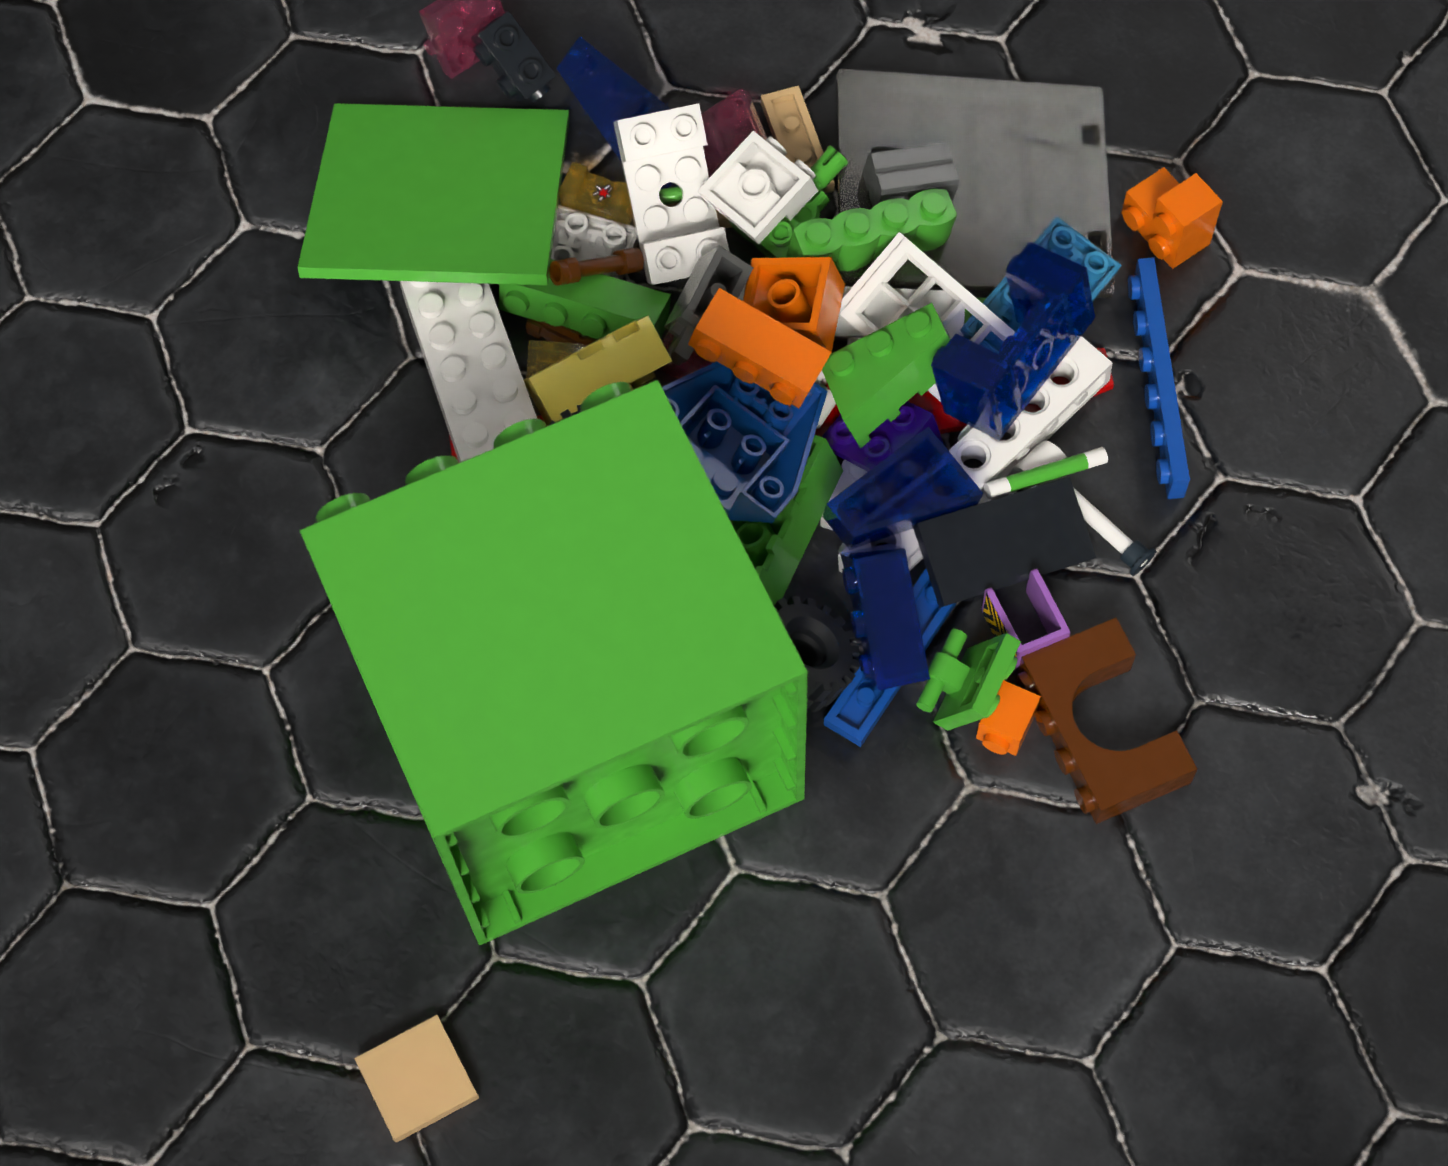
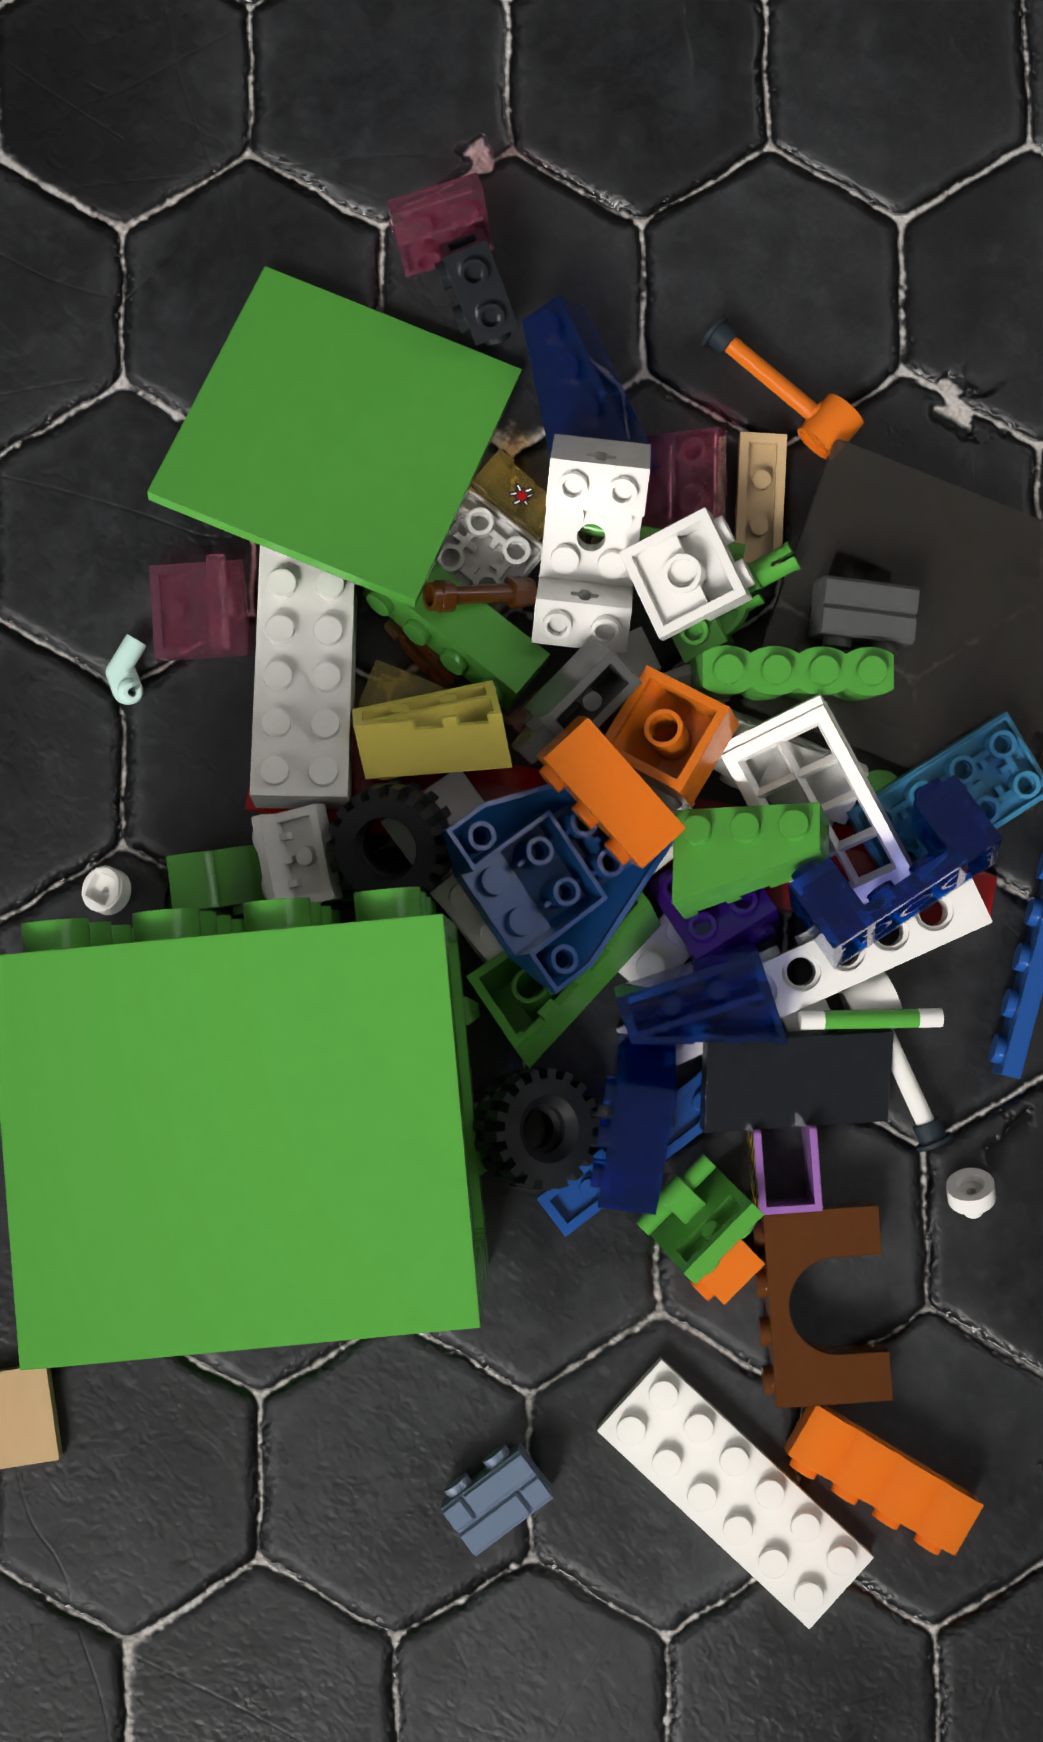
camera: 20 degrees right, 20 degrees up
(315, 430) = (122, 671): none -> light aqua arm
(367, 362) = (200, 609): none -> clear pink plate
(821, 68) = (823, 421): none -> orange piece
(887, 983) = (495, 1497): none -> sand blue brick
(1097, 911) = (734, 1492): none -> white plate
(1191, 590) = (971, 1192): none -> white tile
(1220, 845) = (884, 1477): none -> orange brick

